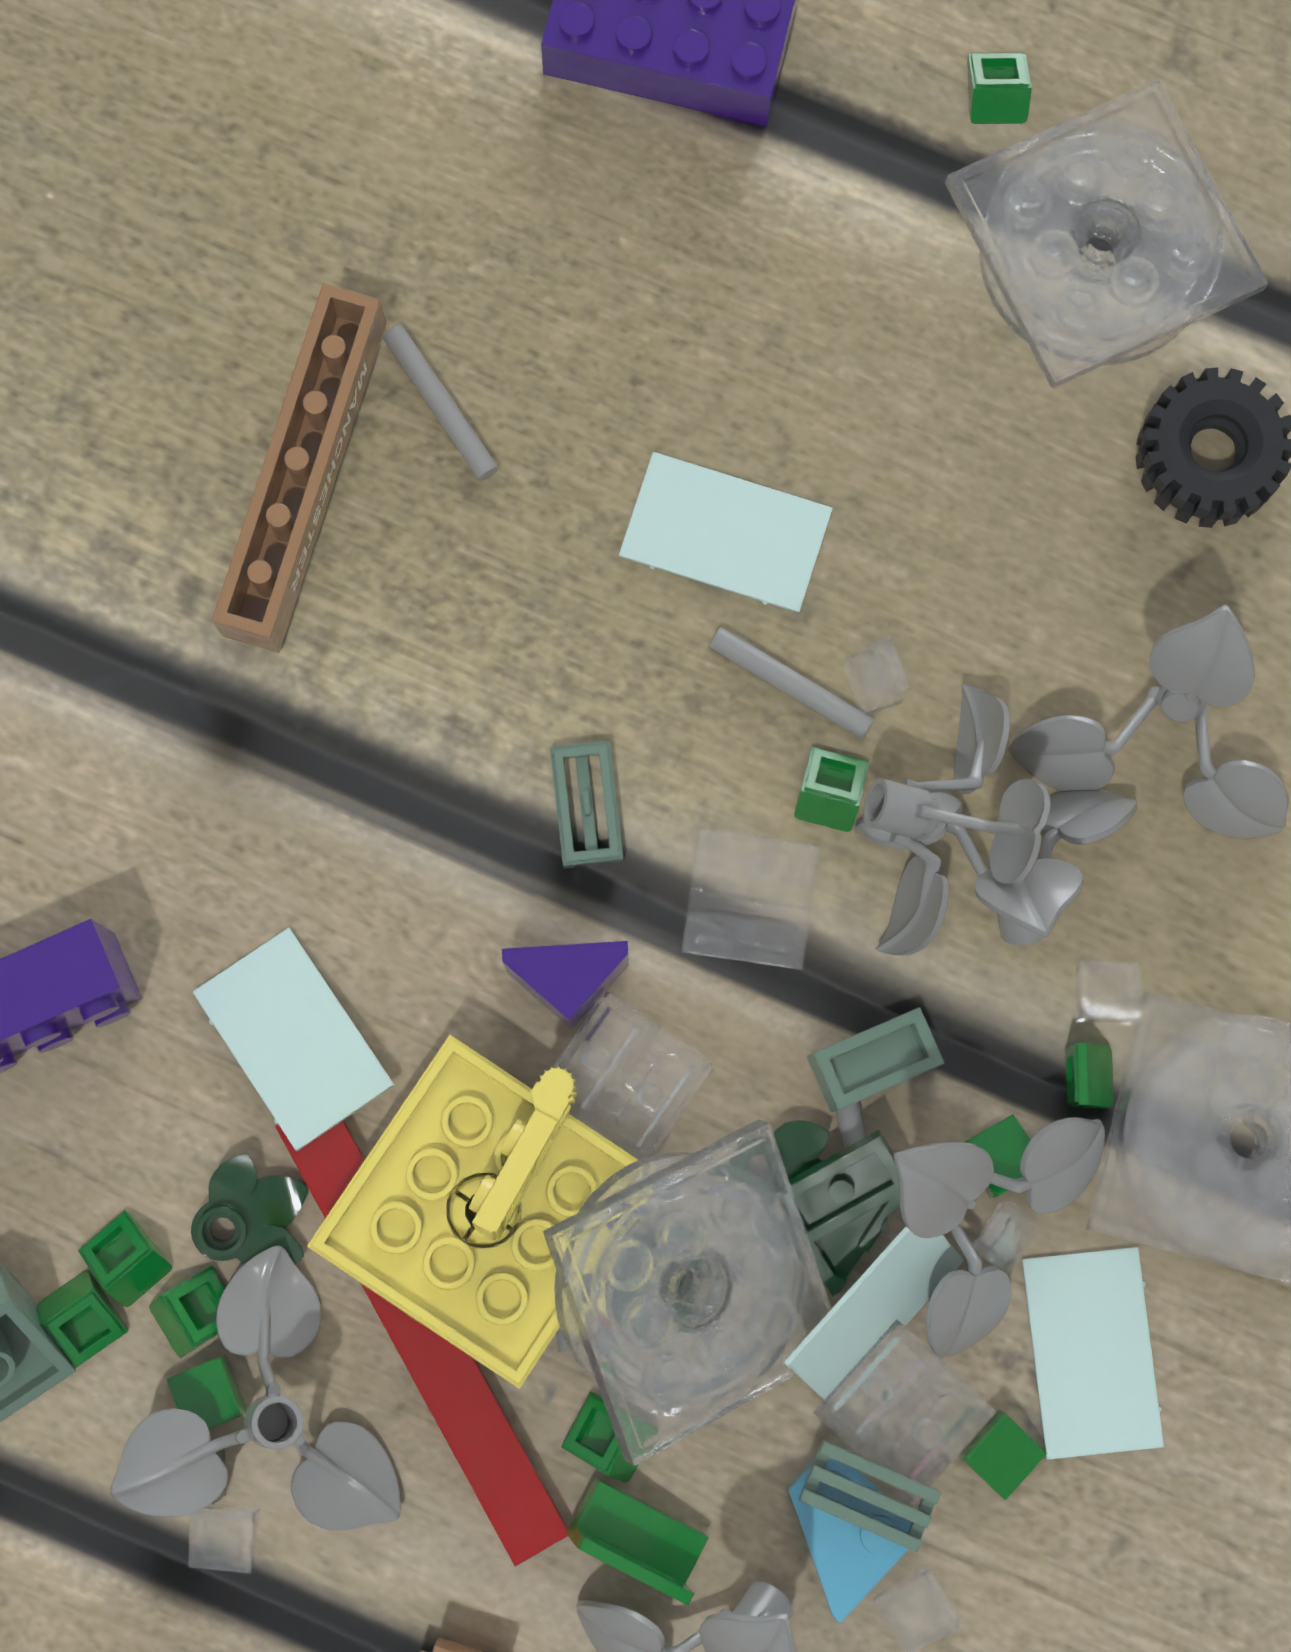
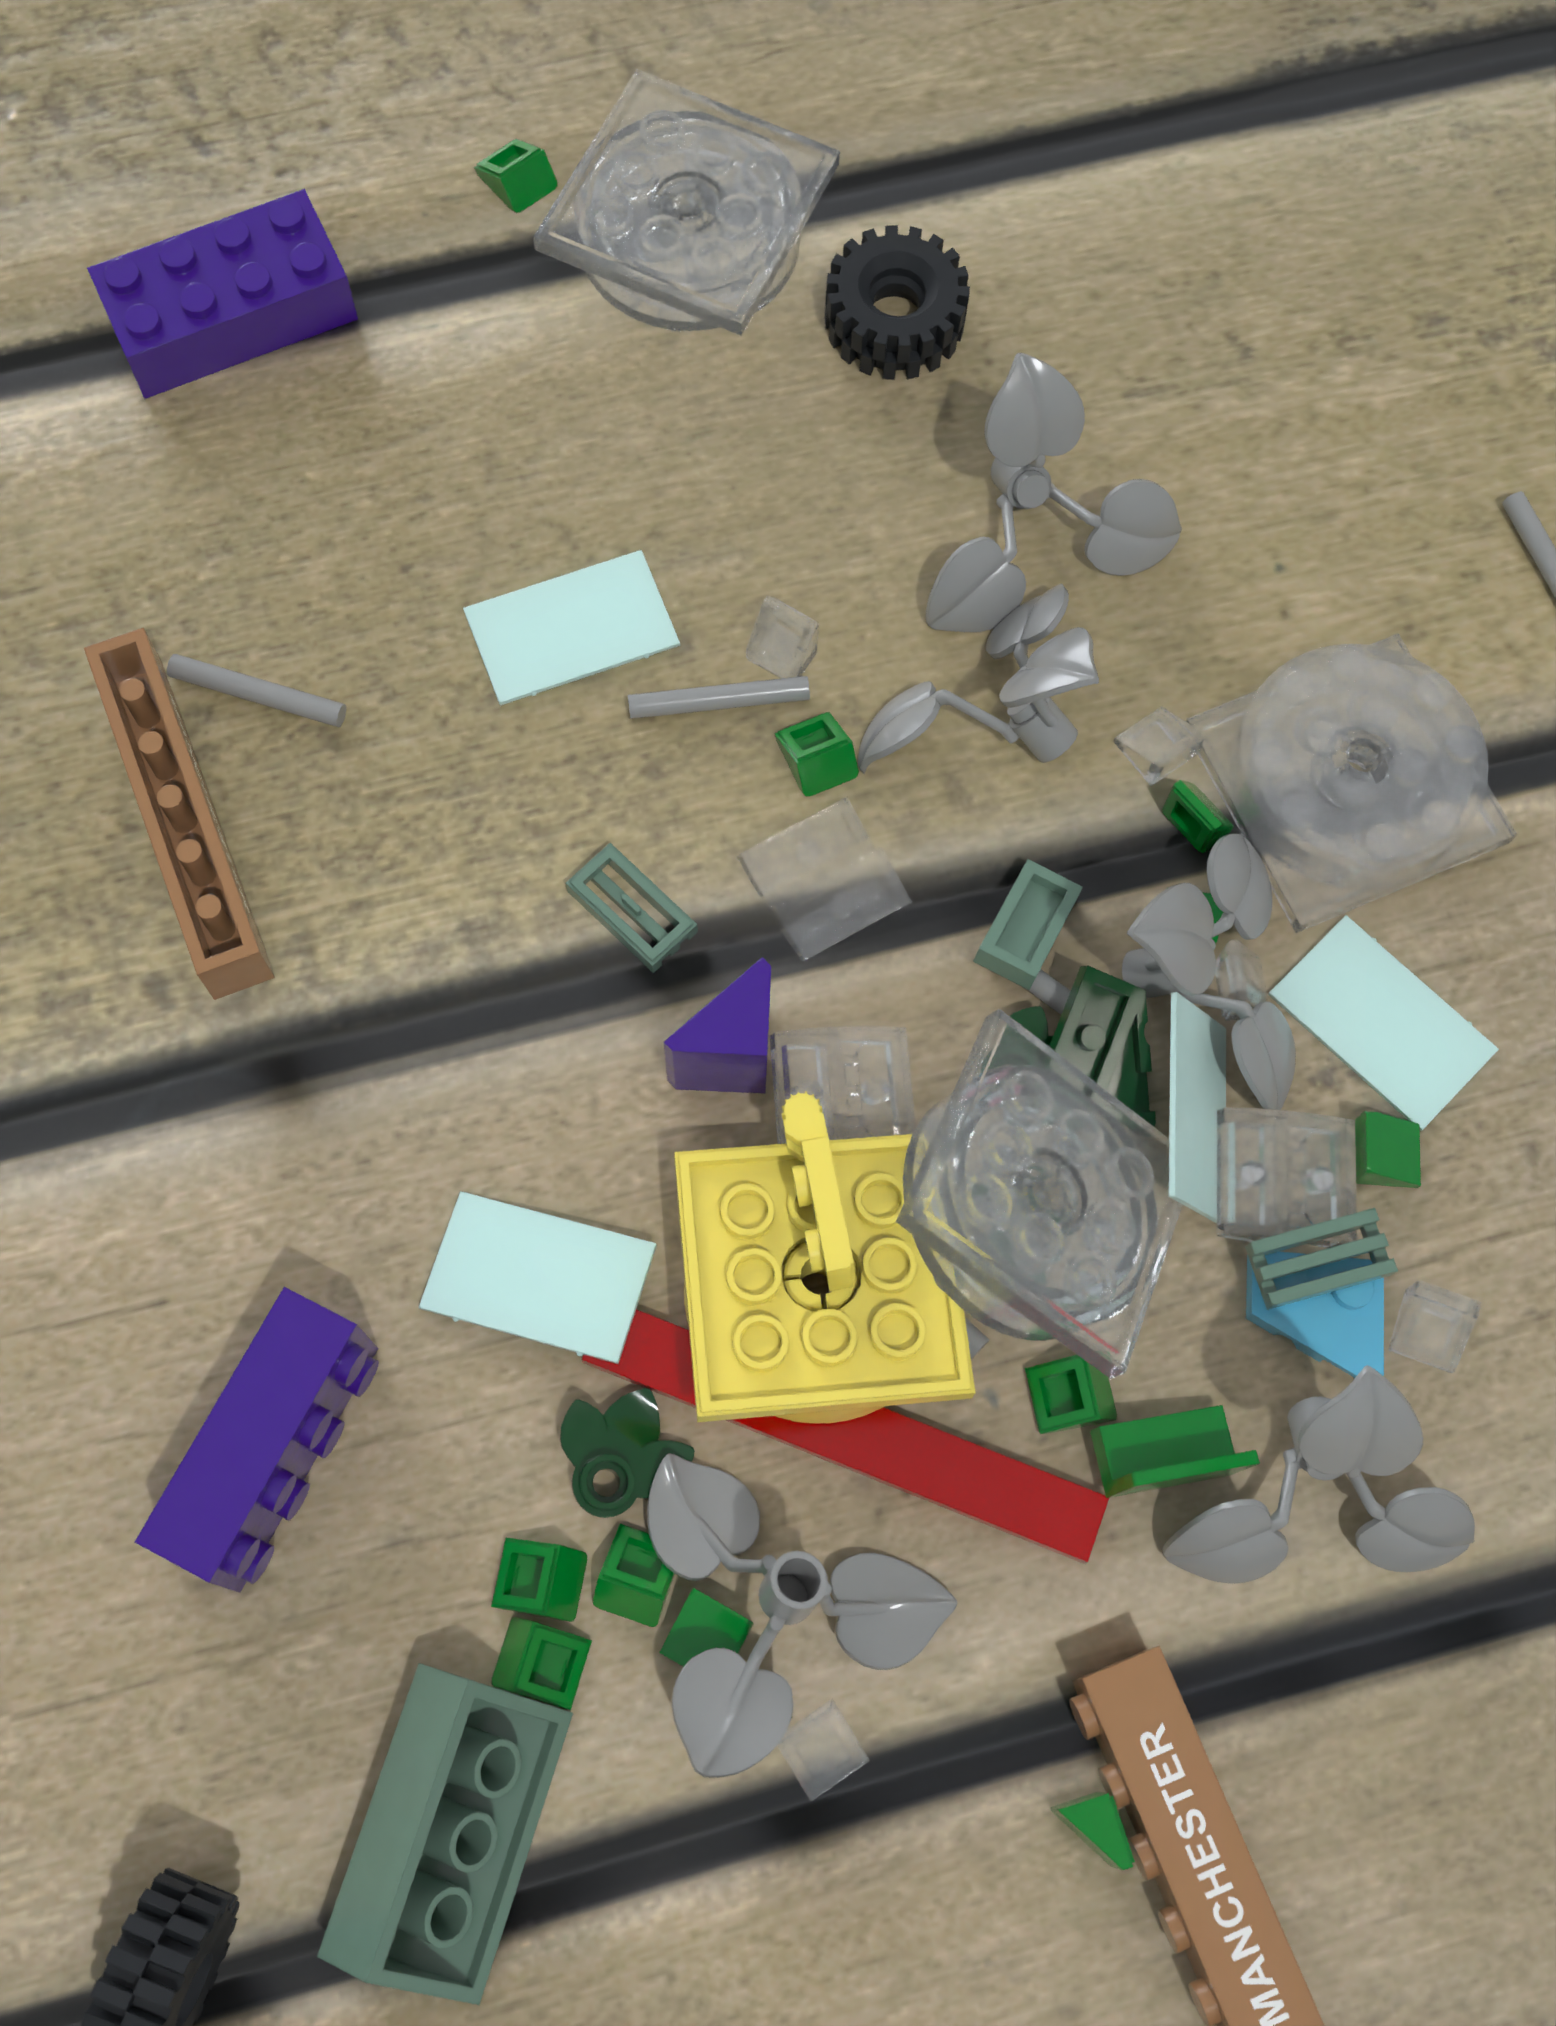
camera: 40 degrees left, 10 degrees down
(910, 811) = (905, 625): light grey plant -> none

